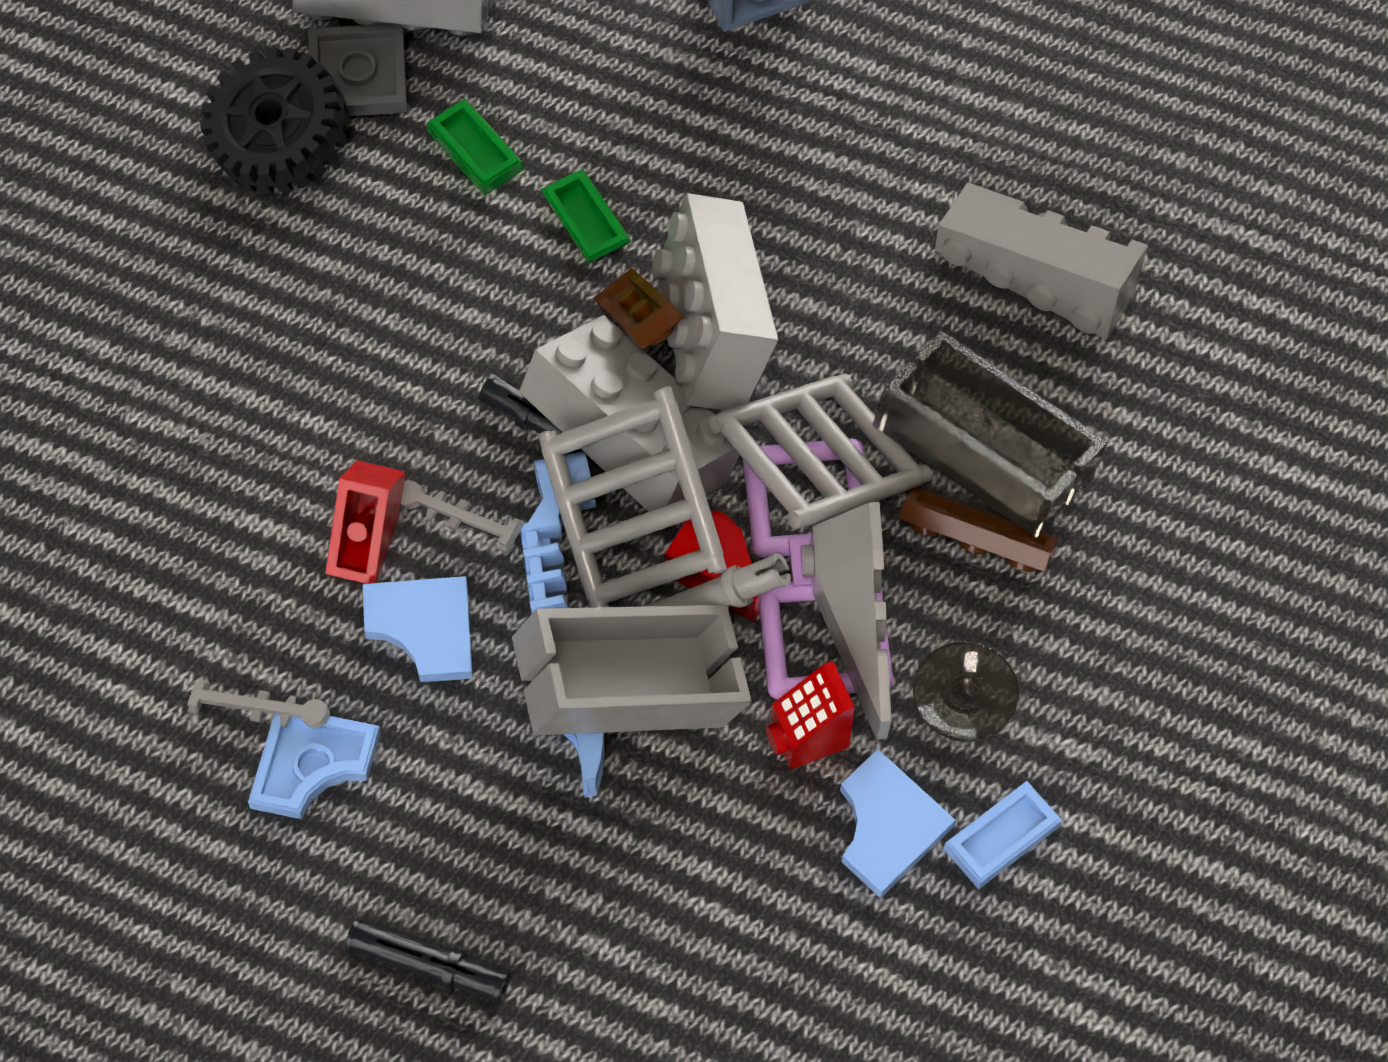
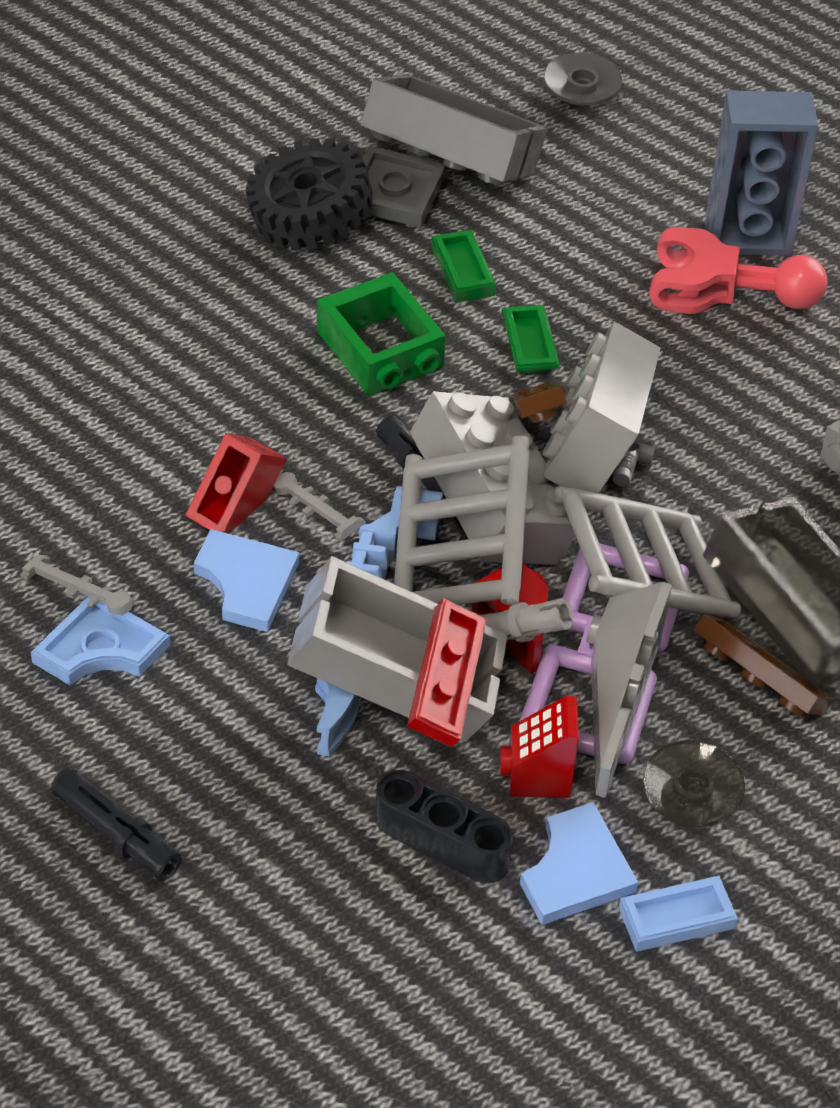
camera: 20 degrees right, 15 degrees down
(397, 242) = (370, 303): none -> green window
(695, 681) = (447, 673): none -> tile
(747, 63) = (710, 272): none -> coral piece
(767, 854) = (455, 846): none -> black beam

